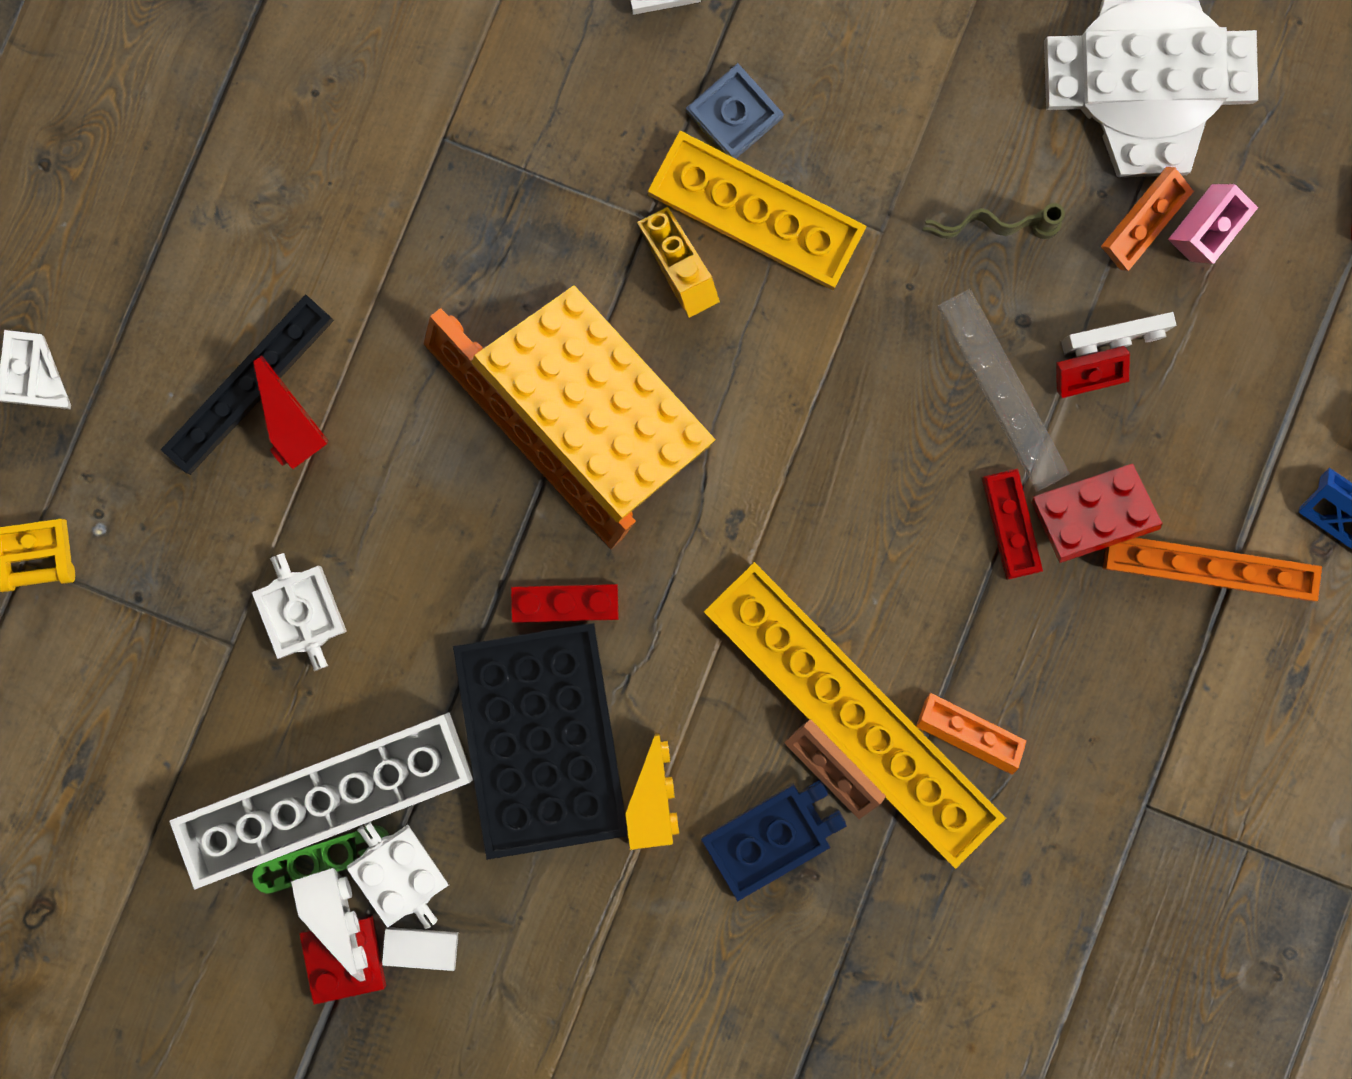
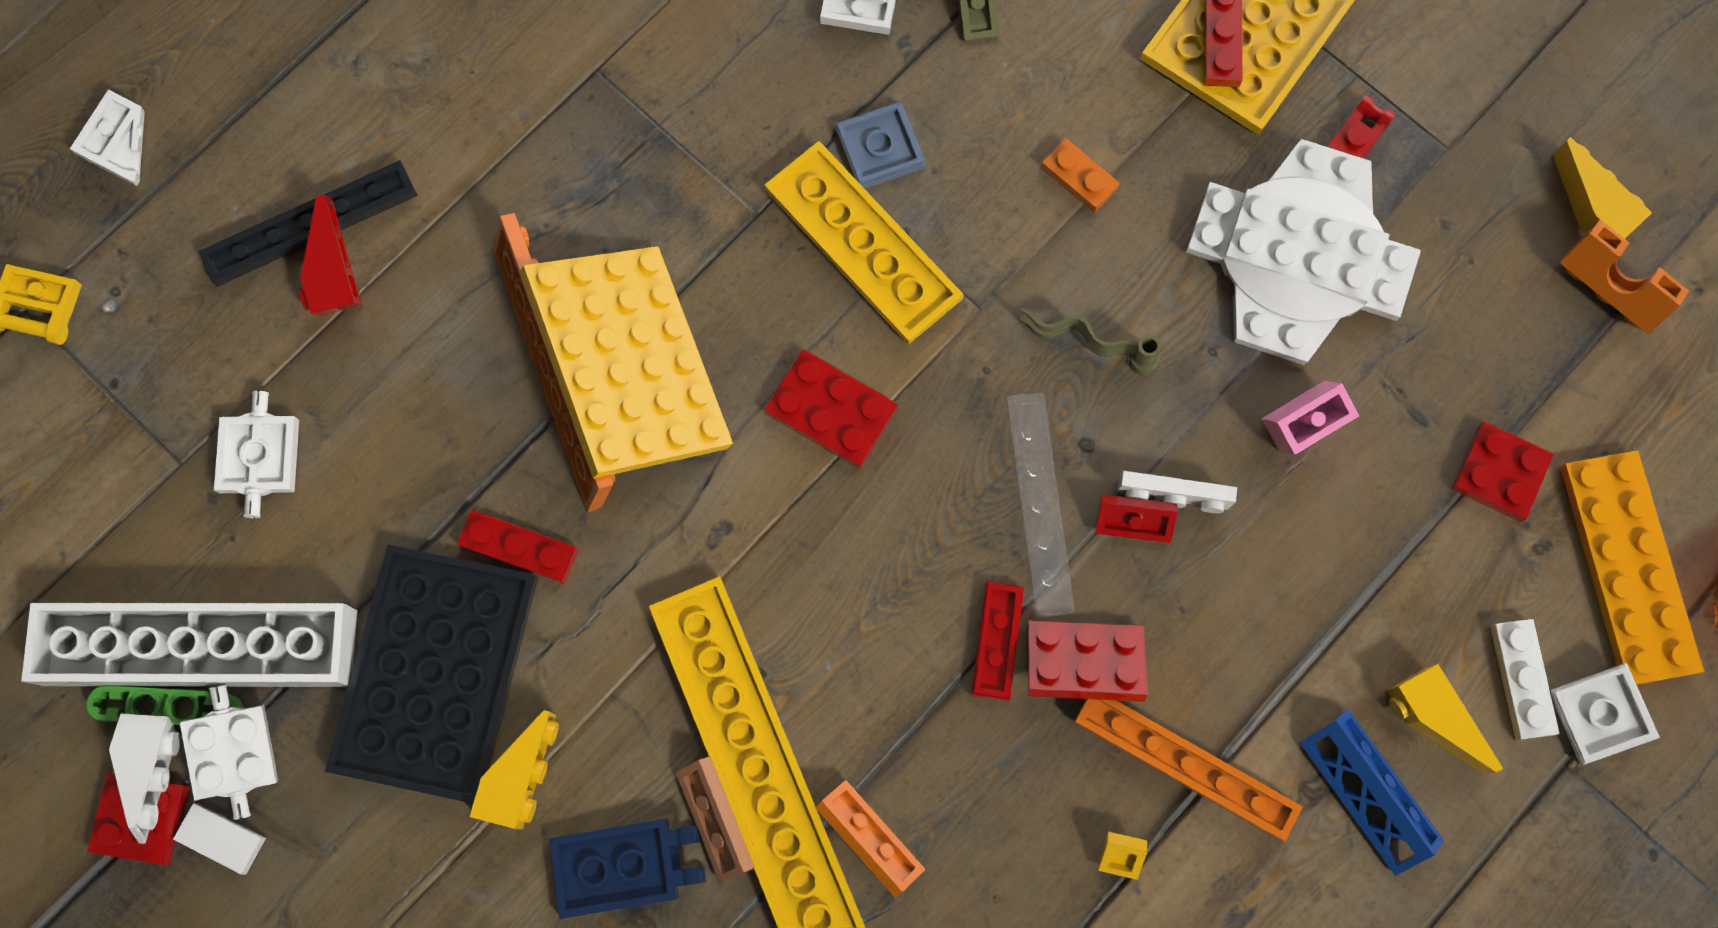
camera: 25 degrees right, 10 degrees down
(679, 262) = (767, 262): yellow slope -> none
(788, 374) = (831, 408): none -> red plate
(925, 73) = (1080, 175): none -> orange plate
(1147, 218) = (1246, 390): orange plate -> none
(1187, 665) = (1122, 855): none -> yellow plate

